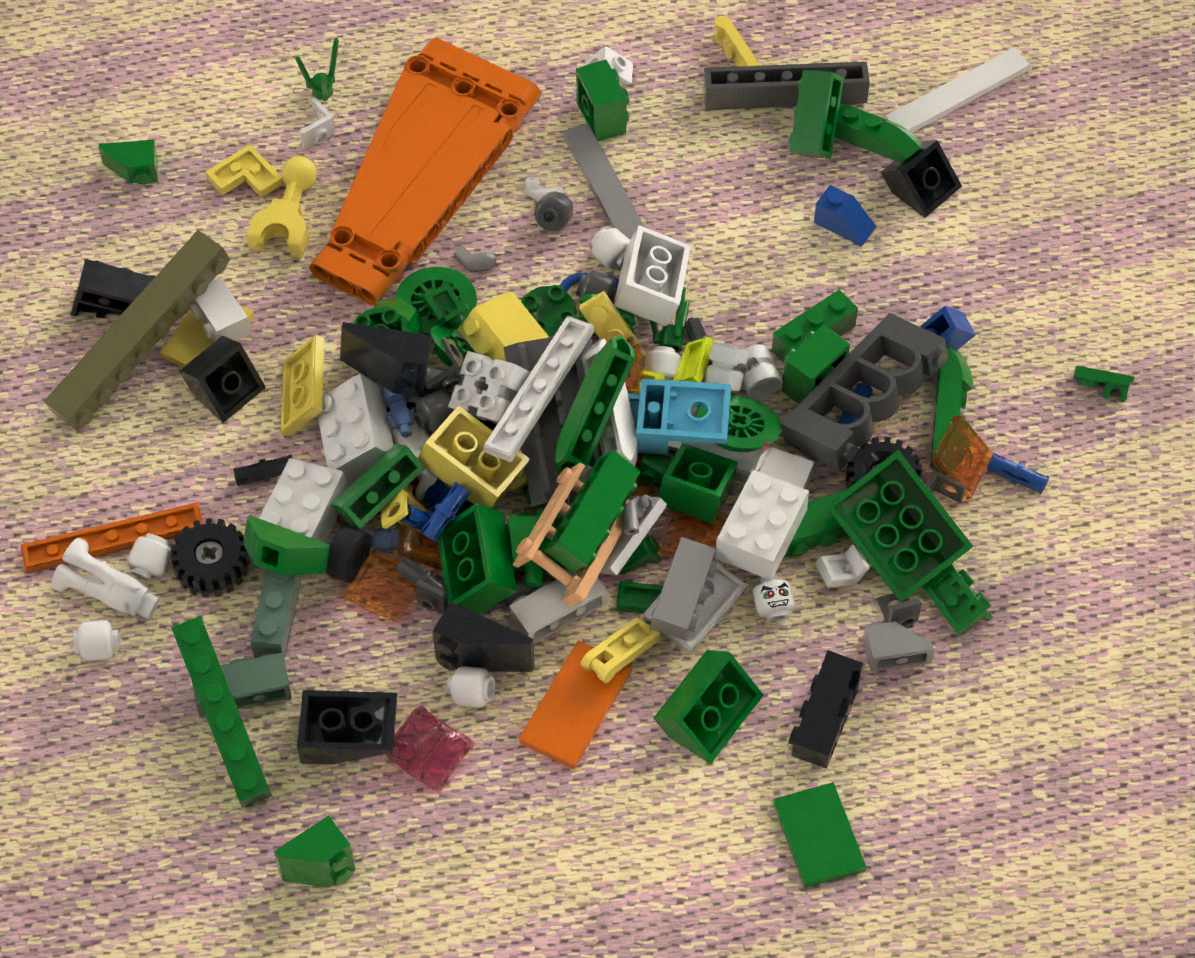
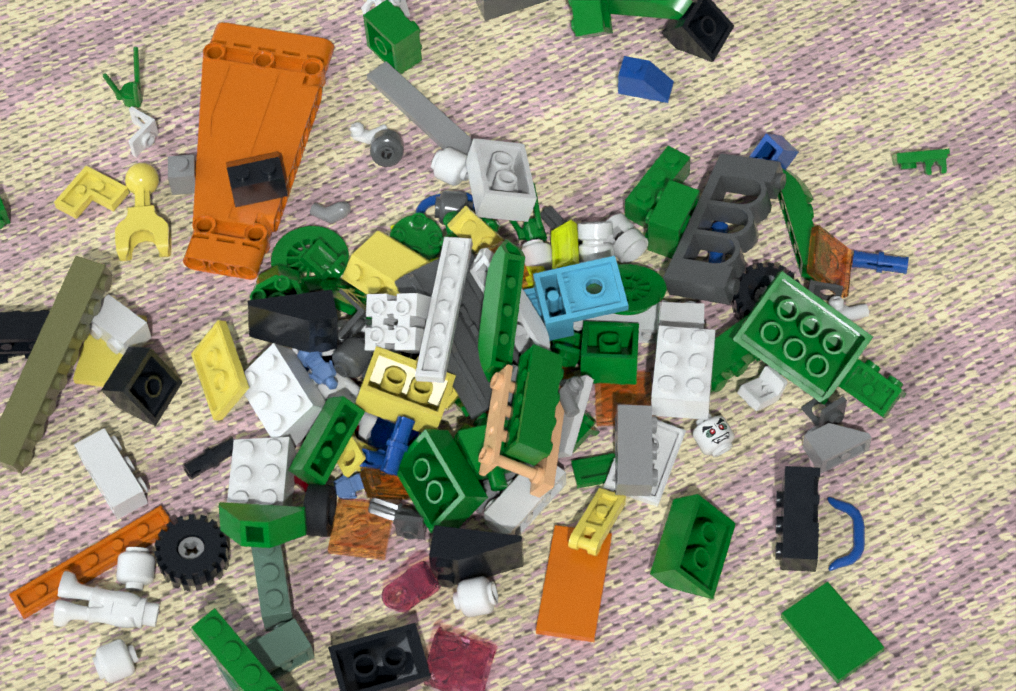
camera: 15 degrees left, 0 degrees up
(162, 456) = (112, 473): none -> white brick
(339, 179) = (182, 174): none -> light grey brick
(408, 205) = (256, 179): none -> black slope
(408, 658) = (415, 585): none -> clear pink piece
(884, 746) = (858, 534): none -> blue animal
(961, 514) = (851, 313): none -> white arm

